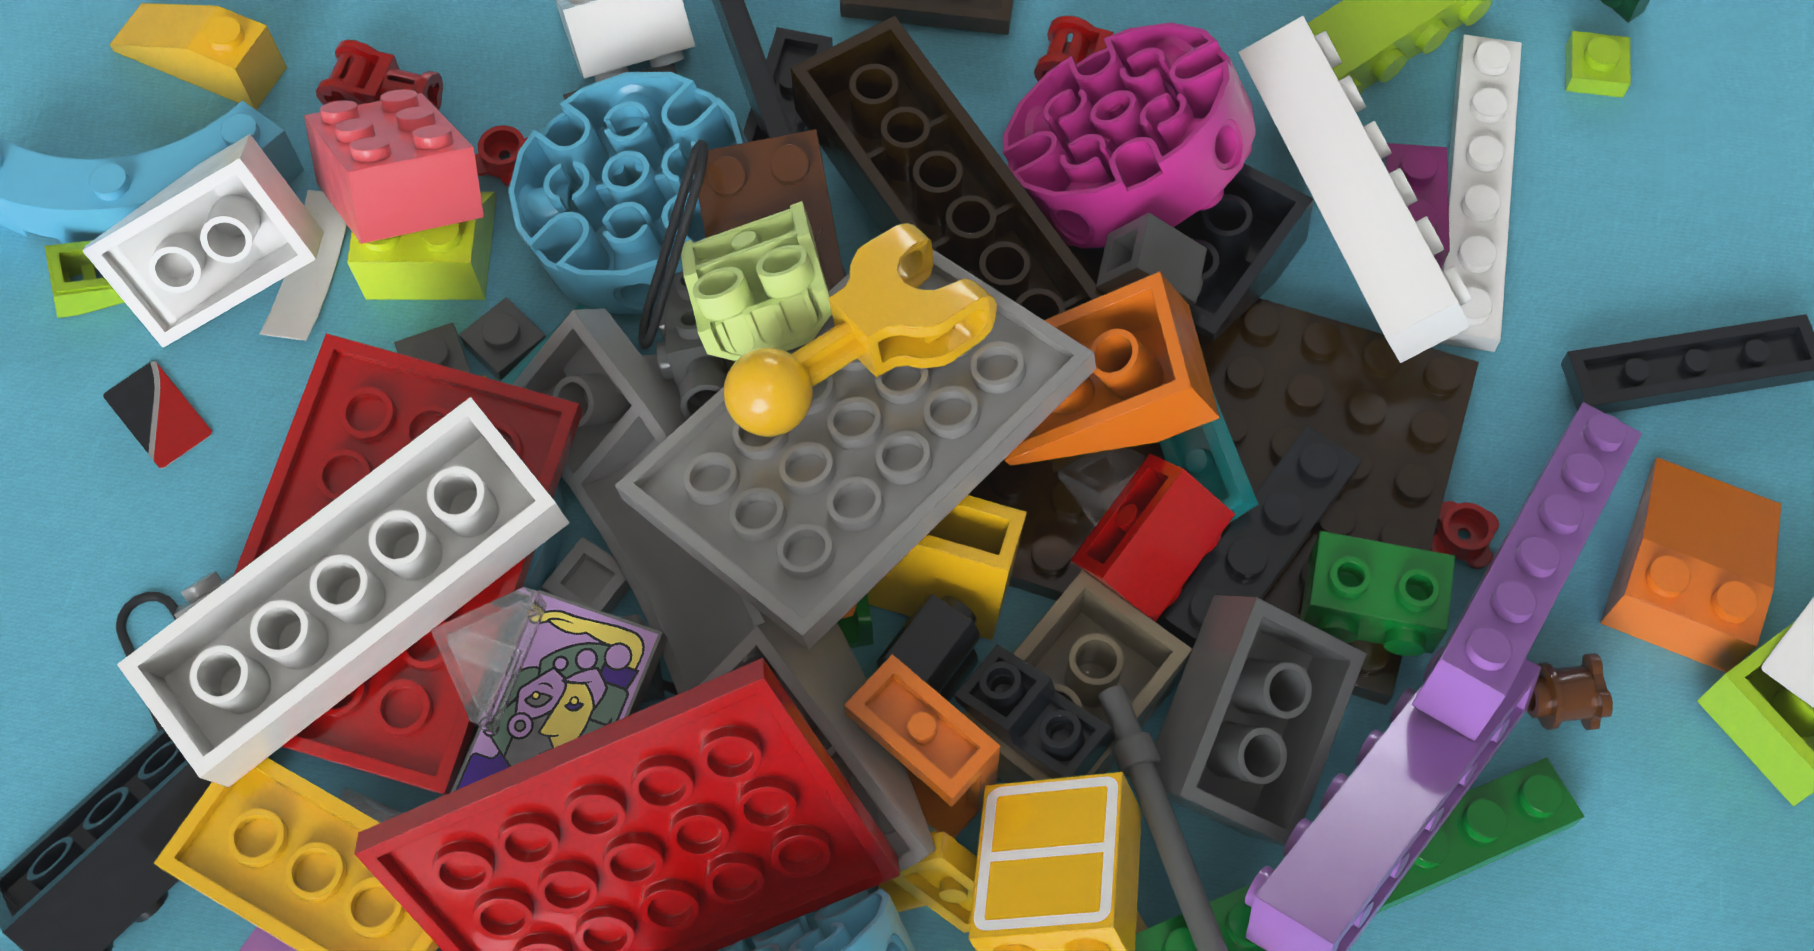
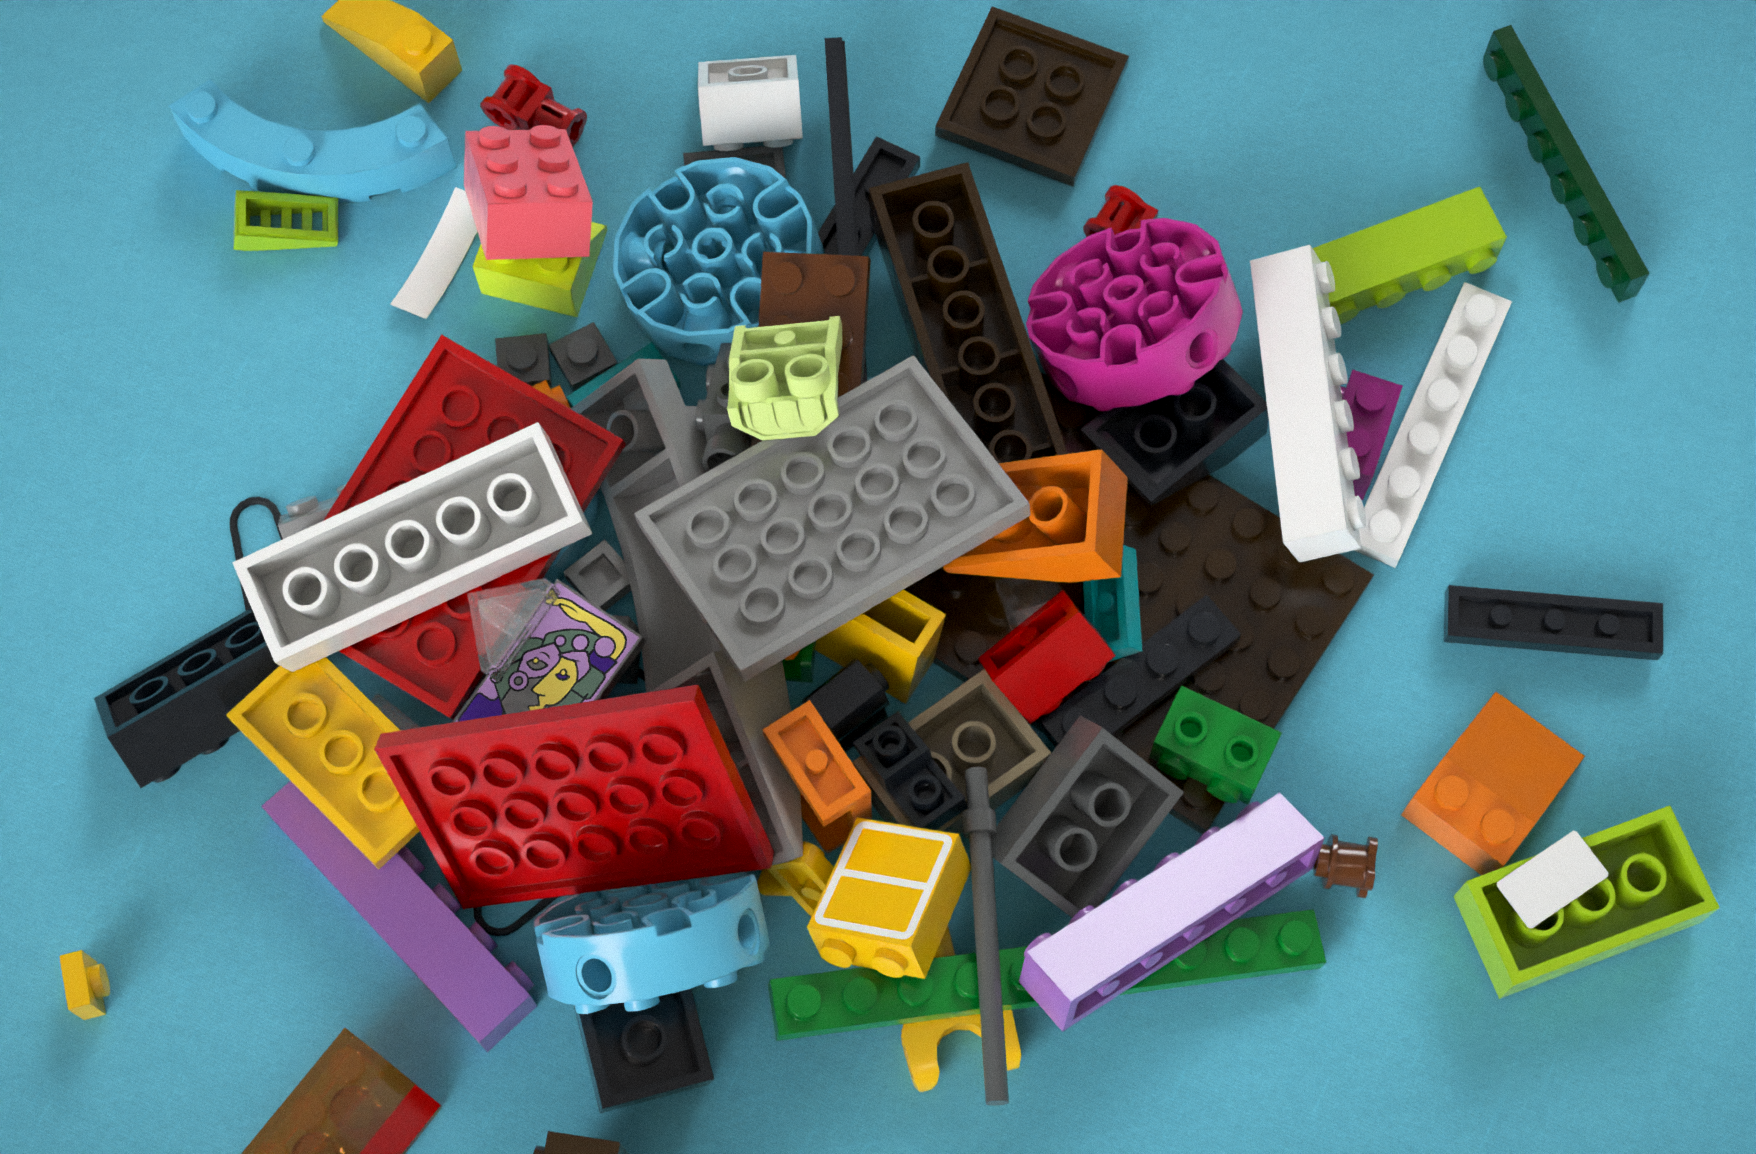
camera: 15 degrees right, 5 degrees up
(157, 414) = (296, 351): sticker -> none
(207, 242) = (367, 220): white slope -> none
(495, 144) = (613, 185): red plate -> none
(647, 328) = (762, 268): black piece -> none
(876, 320) = (866, 435): yellow piece -> none
(1151, 247) = (1114, 427): dark grey brick -> none
(1473, 519) = (1327, 711): red plate -> none
(1527, 573) = (1339, 756): medium lavender brick -> none
(1598, 64) = (1574, 335): lime plate -> none

